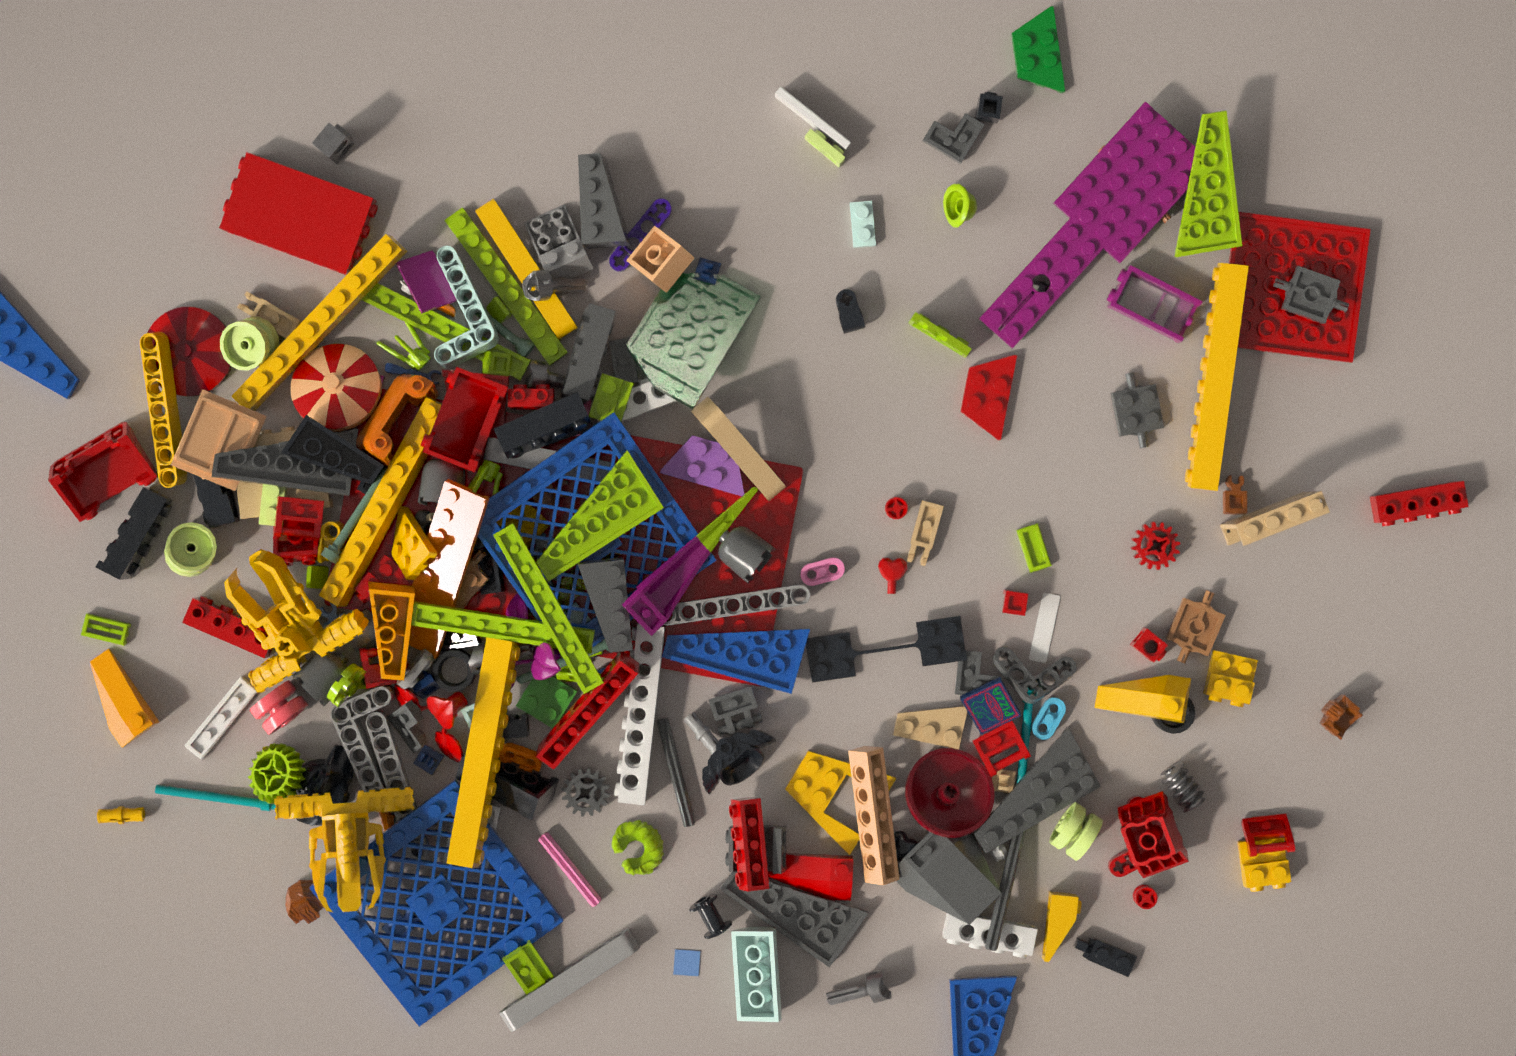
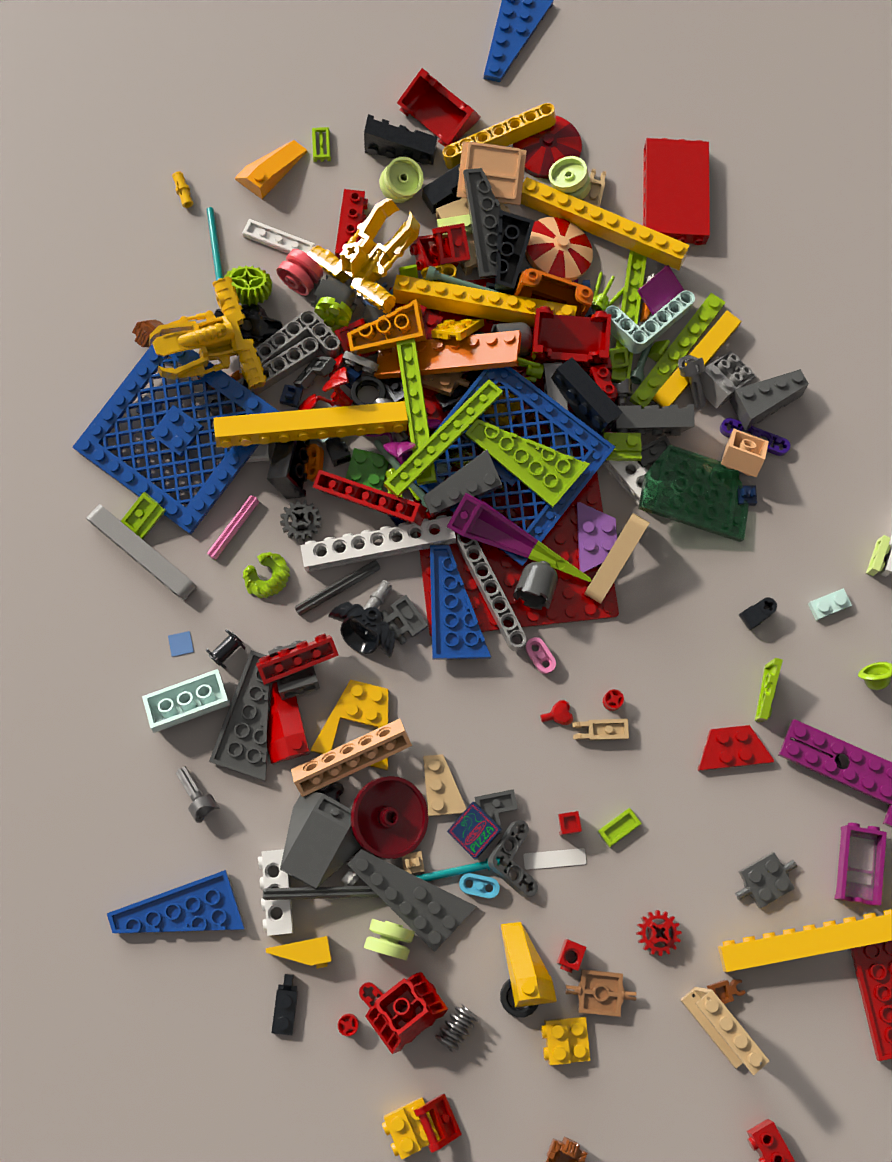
camera: 60 degrees right, 15 degrees down
(333, 142) = (739, 197): flat silver brick -> none
(938, 642) = (514, 768): black hinge -> none
(997, 742) = (445, 847): red plate -> none

